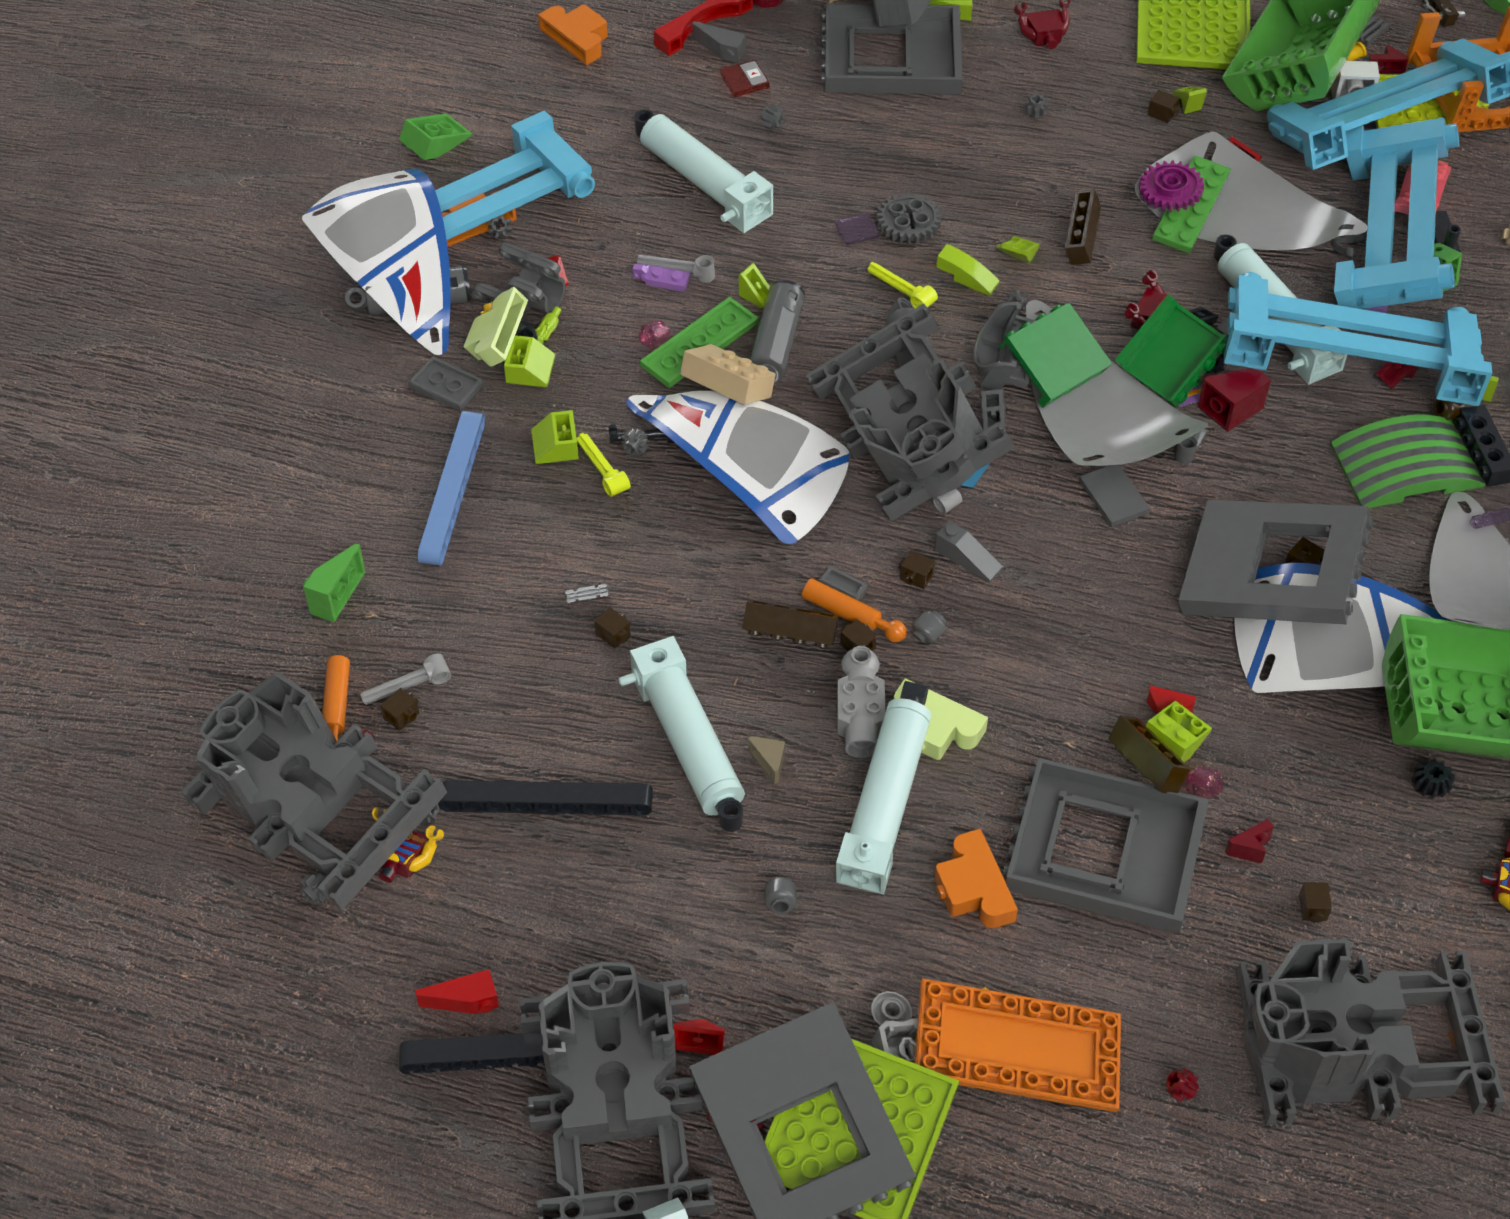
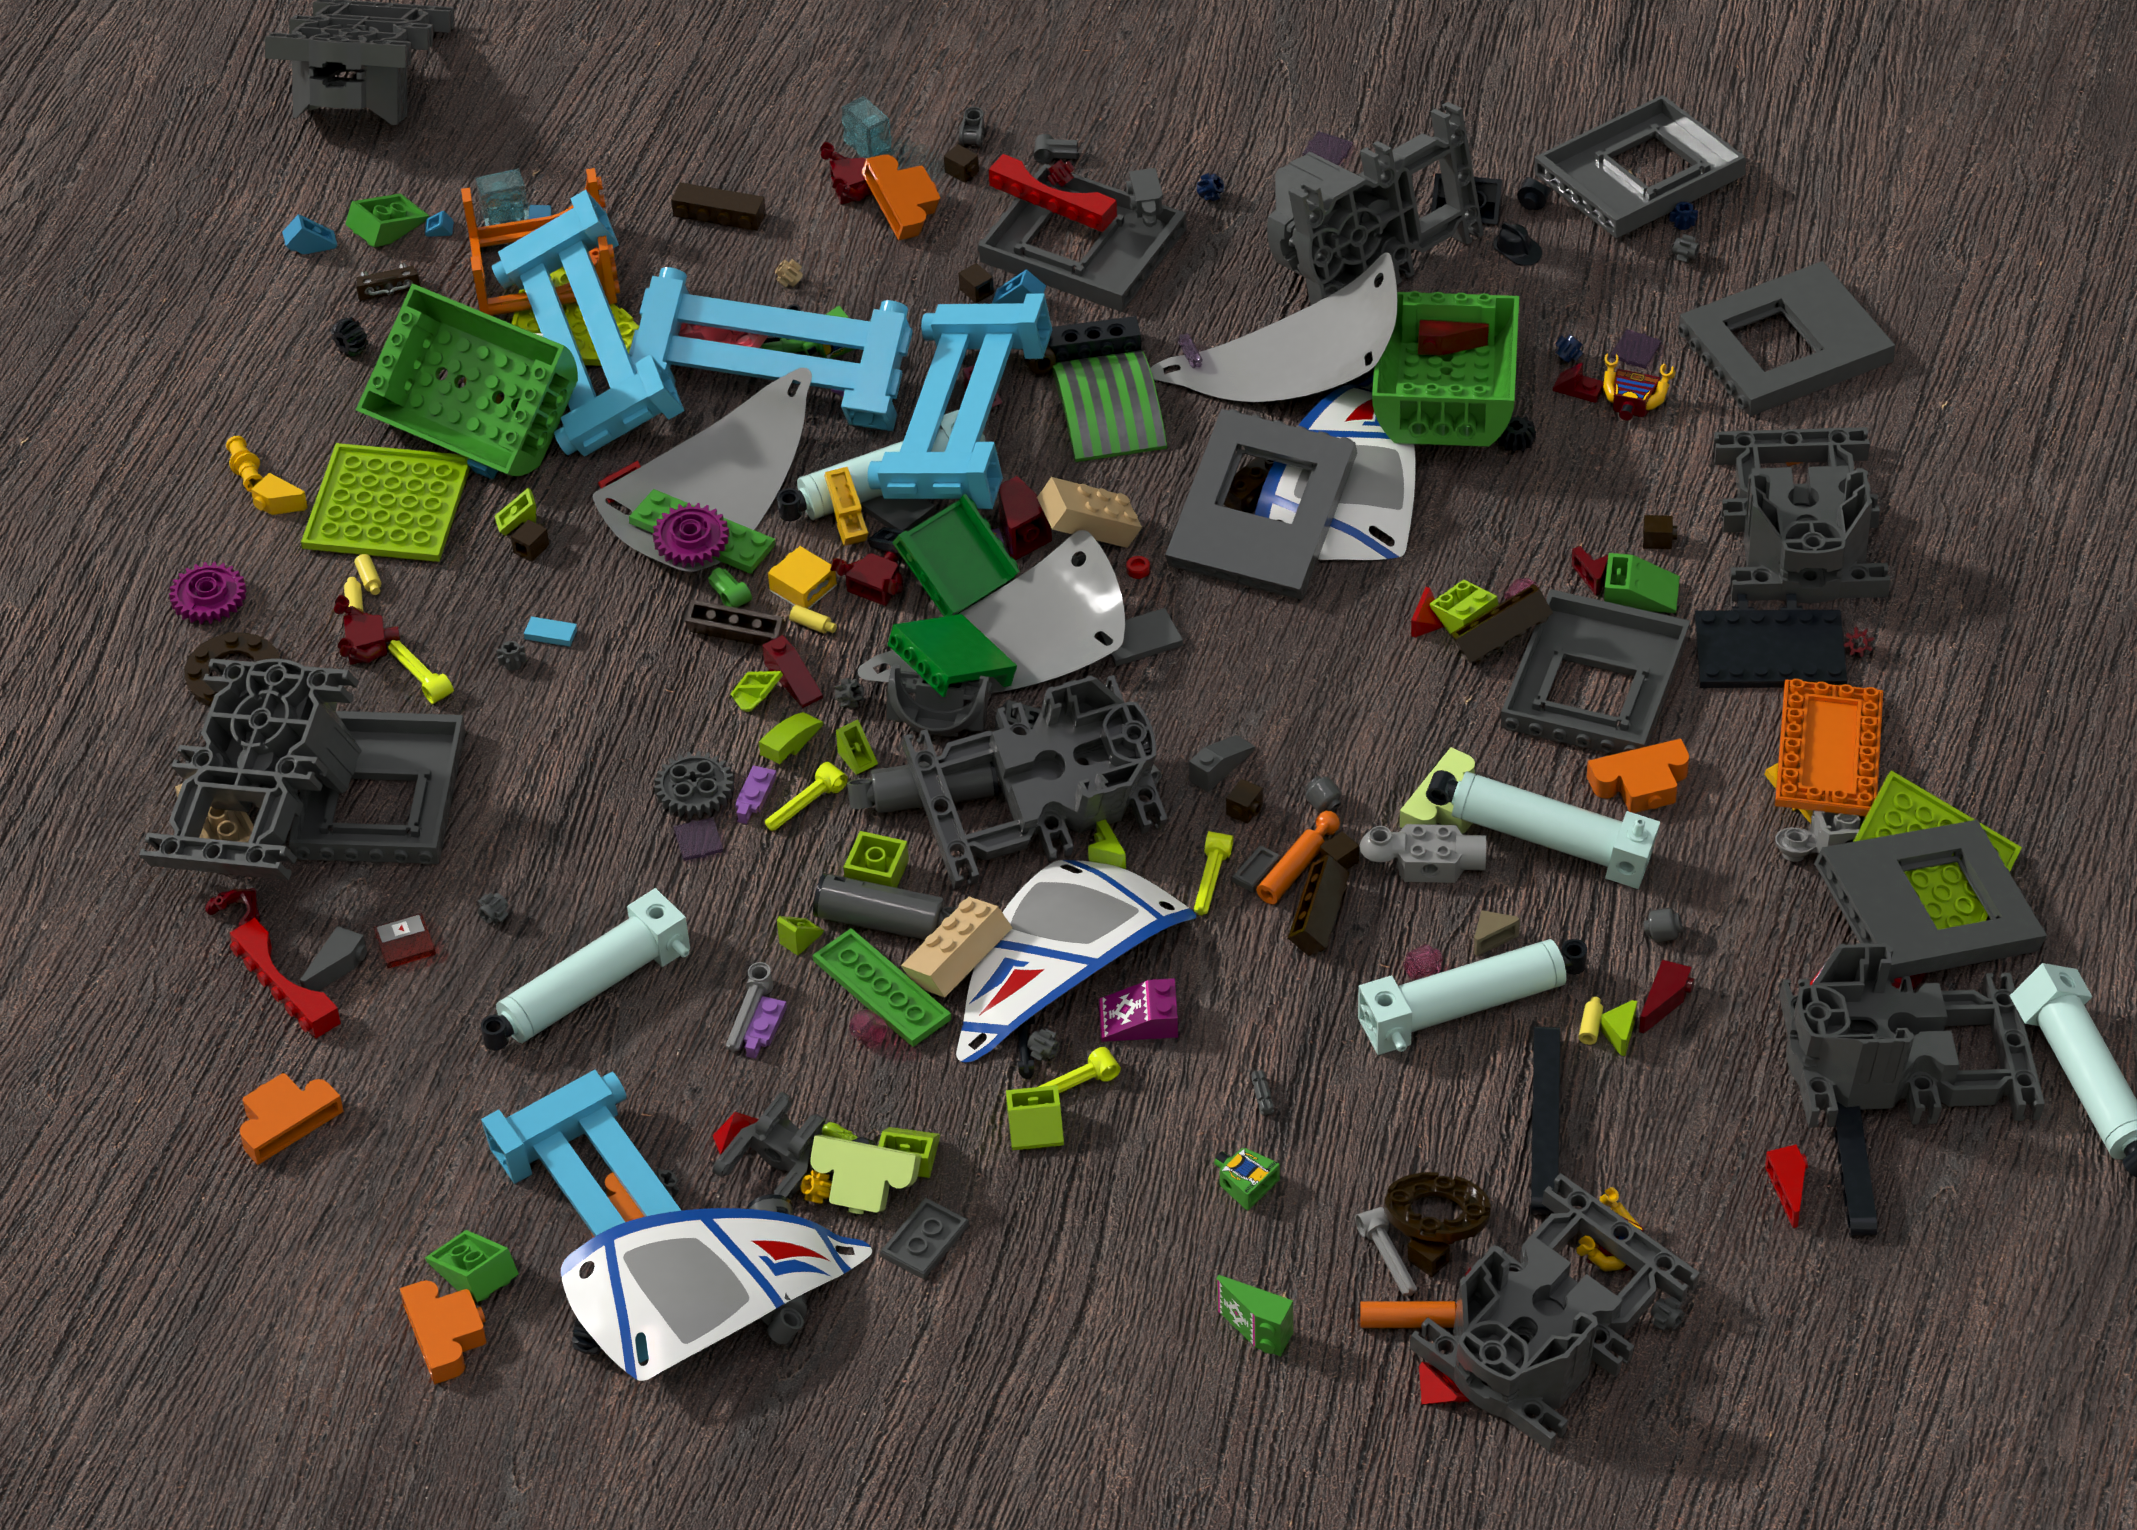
camera: 85 degrees left, 5 degrees down
(376, 125) = (443, 1327): none -> orange brick
(431, 737) = (1412, 1187): none -> dark brown plate
(451, 488) = (1100, 1220): medium blue beam -> none
(491, 580) = (1247, 1176): none -> bright green torso
(612, 627) = (1317, 1064): dark brown brick -> none
(653, 858) = (1619, 1024): none -> lime slope
(664, 836) = (1591, 1021): none -> light yellow cylinder
(673, 509) = (1140, 1012): none -> magenta slope
(697, 896) = (1666, 994): none -> dark red slope
(728, 702) = (1423, 962): none -> clear pink head
(824, 326) = (877, 859): none -> lime brick
(856, 479) = (1107, 847): none -> lime slope
(862, 552) = (1217, 848): none -> neon yellow axle
(906, 256) = (754, 792): none -> medium lavender hinge
(956, 309) = (855, 748): none -> lime slope
(1000, 68) = (433, 685): none -> neon yellow axle
(1040, 266) = (796, 679): none -> dark red slope
(1069, 128) = (550, 631): none -> medium azure tile
(1087, 19) = (353, 592): none -> light yellow cylinder
(1102, 277) = (812, 619): none -> light yellow cylinder
(1114, 25) = (368, 574): none -> light yellow cylinder
(1125, 227) = (731, 592): none -> bright green piece
(1140, 260) = (802, 578): none -> yellow piece
(1172, 1005) = (1769, 646): none -> black hinge
(1201, 490) = (1138, 567): none -> red tile
(1222, 278) = (846, 506): none -> yellow slope
(1233, 882) = (1640, 584): none -> bright green slope
(1239, 435) = (1081, 507): none -> tan brick

